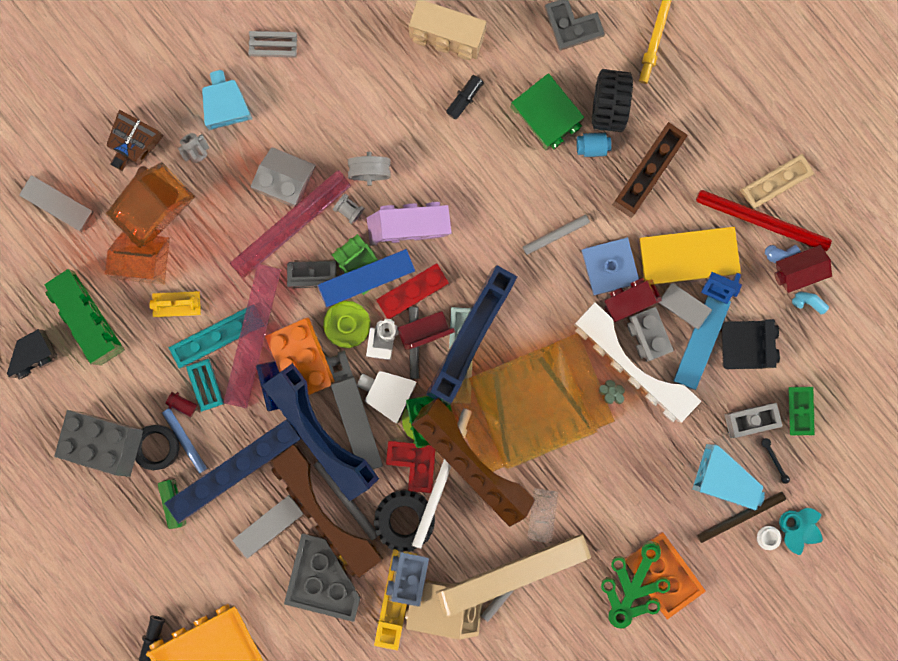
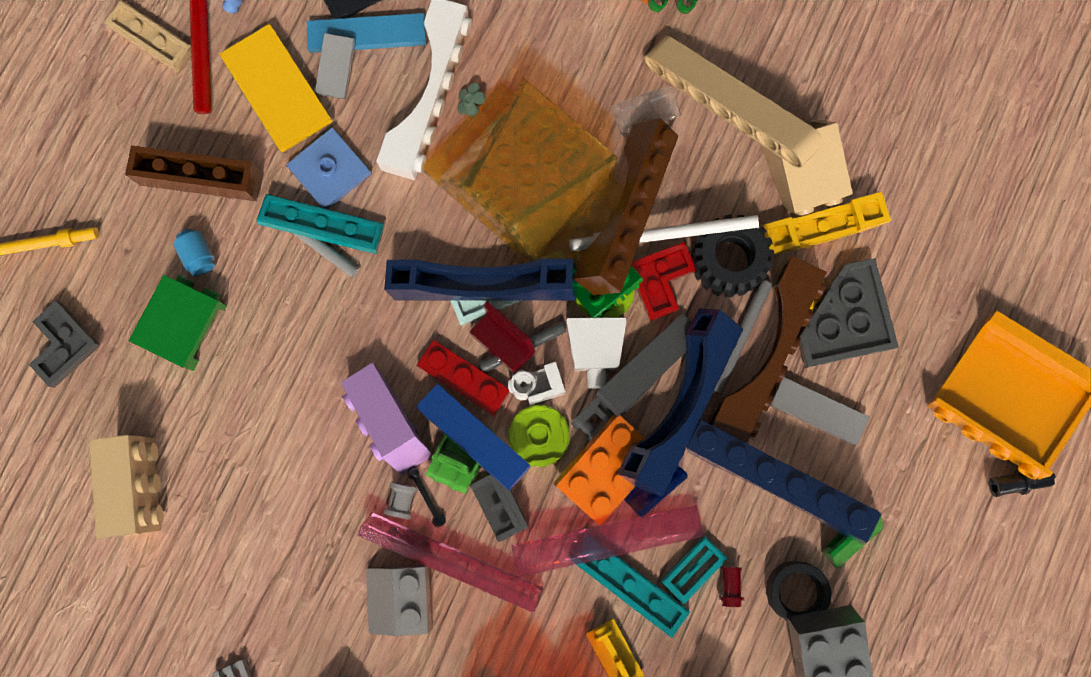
camera: 110 degrees left, 5 degrees down
(184, 440) = (771, 561): medium blue bar -> none
(323, 228) = (438, 519): none -> black hinge
(369, 168) = (339, 498): light grey wheel -> none
(407, 579) = (798, 216): sand blue bracket -> none
(464, 97) = (203, 428): black axle -> none
(571, 242) = (320, 223): none -> teal tile
(612, 100) = (127, 250): black tyre -> none
(625, 303) = (354, 122): dark red brick -> none
(650, 334) = (386, 91): light grey bracket -> none
(721, 287) = (294, 34): blue bracket -> none

